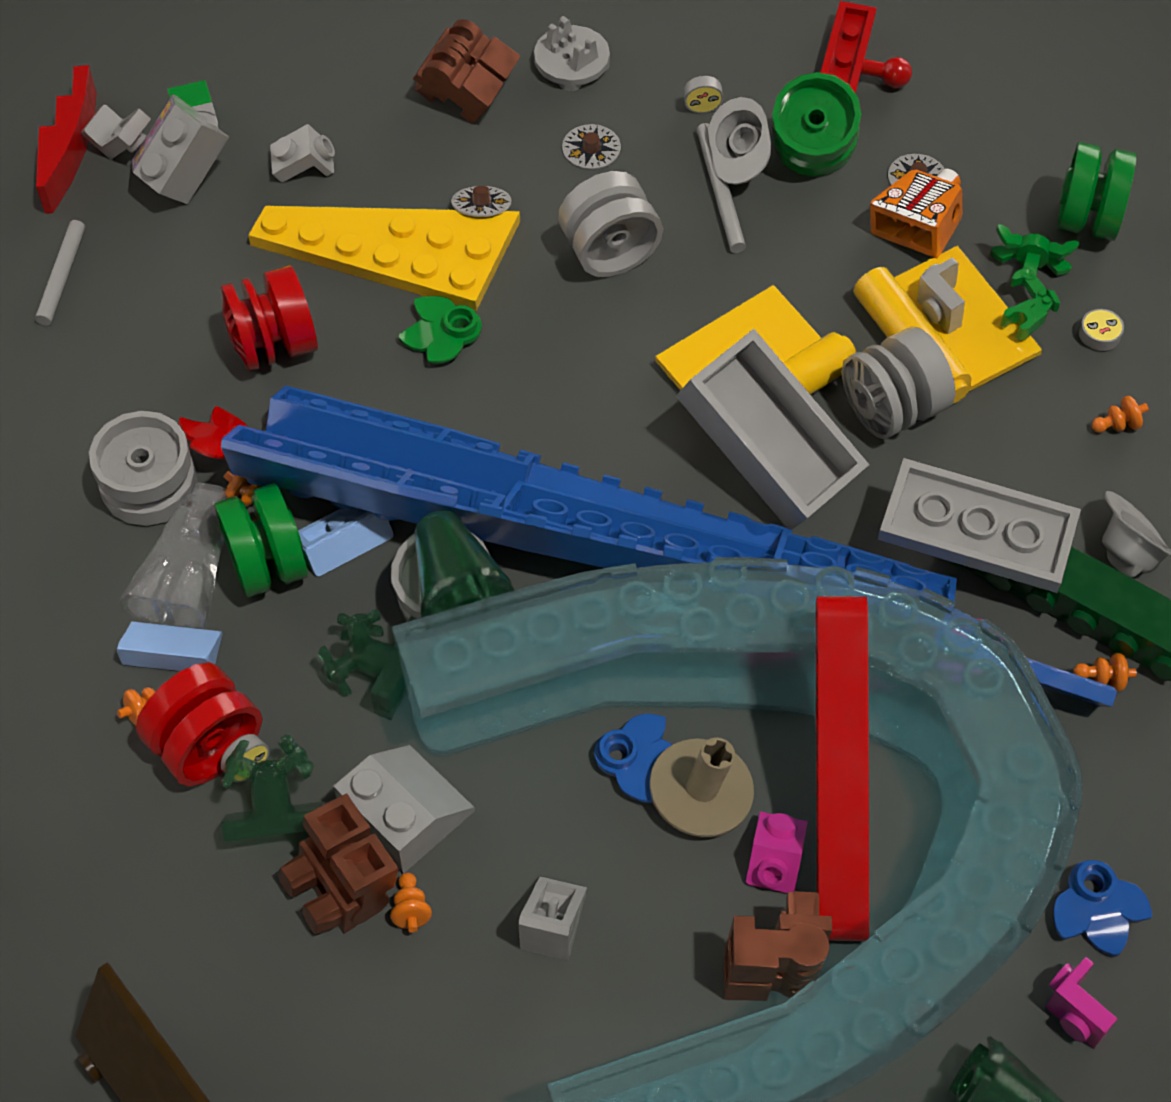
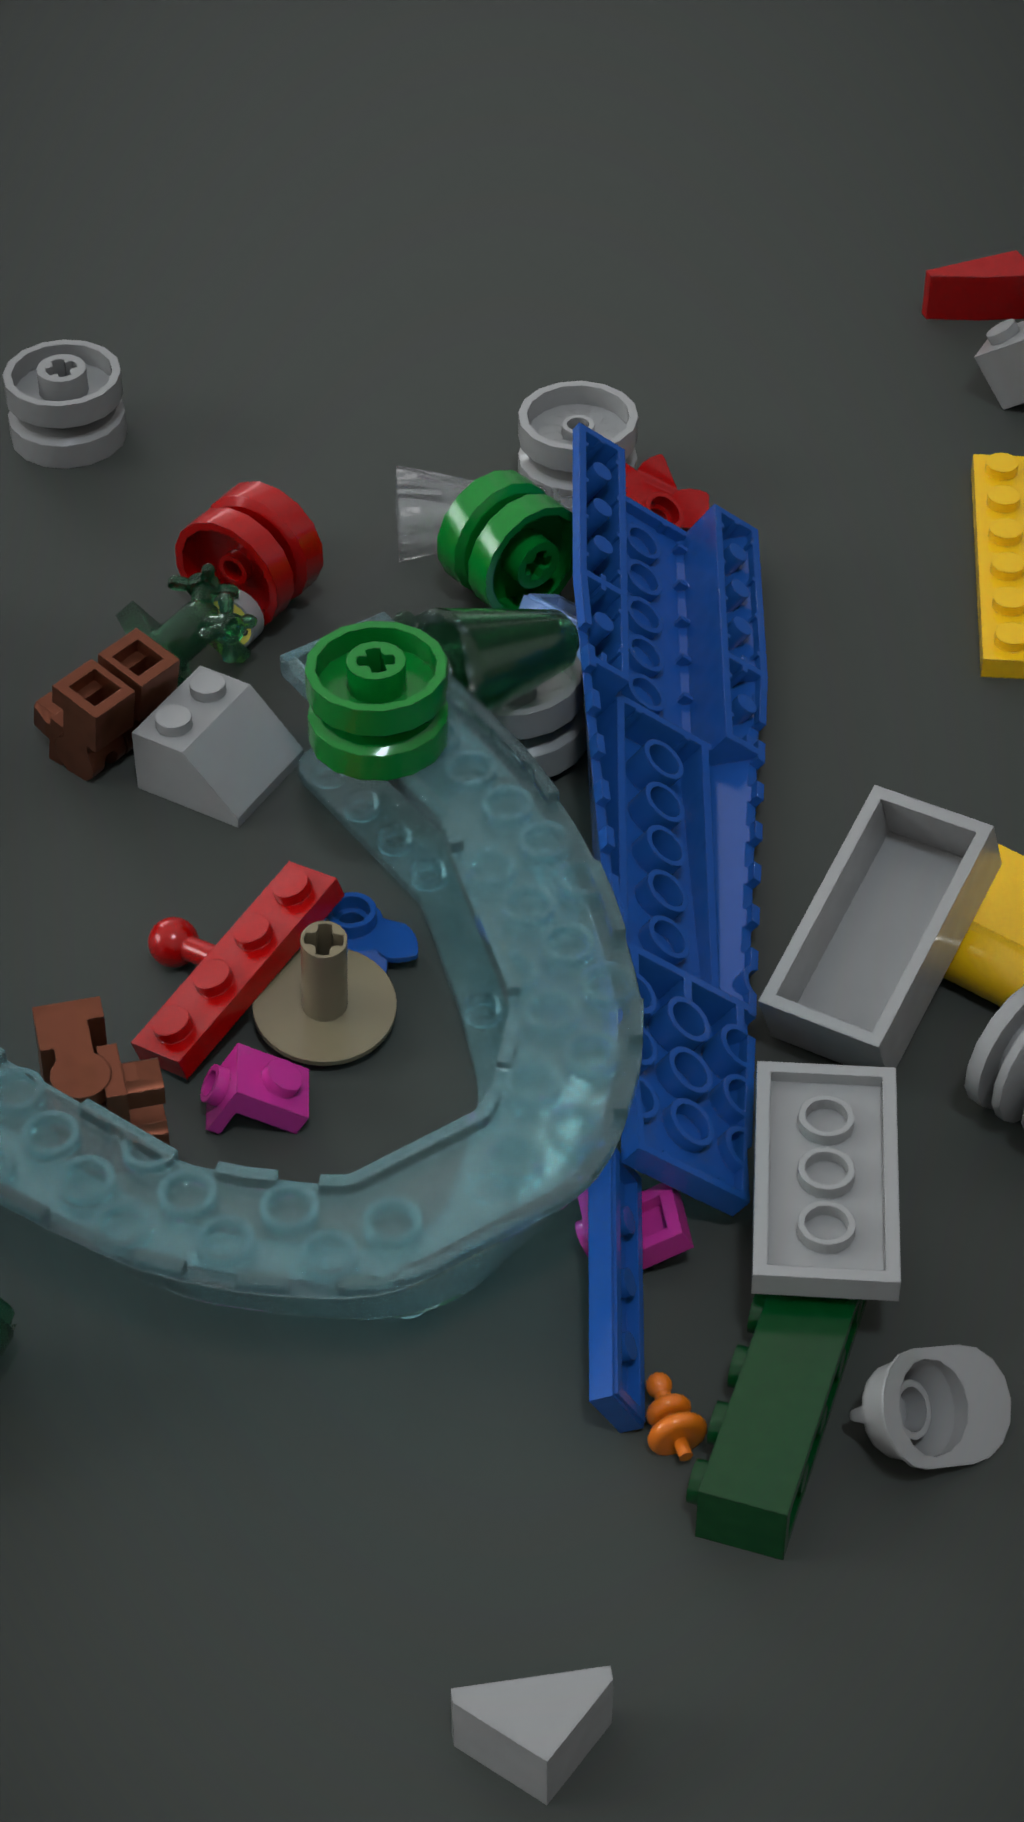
camera: 75 degrees right, 15 degrees down
(60, 273) = (837, 339): light grey bar -> none
(167, 646) = (364, 538): light blue slope -> none
(269, 318) = (835, 478): red wheel -> none
(410, 905) = (97, 788): orange hair -> none
(439, 328) = (930, 651): green plate -> none
(536, 645) = (377, 700): none -> green wheel
(551, 918) = (99, 899): light grey slope -> none
(657, 834) = (232, 970): none -> red plate
(842, 765) = (370, 1049): red beam -> none
(1078, 1011) = (99, 1435): dark pink bracket -> none
(1103, 914) = (267, 1459): blue plate -> none

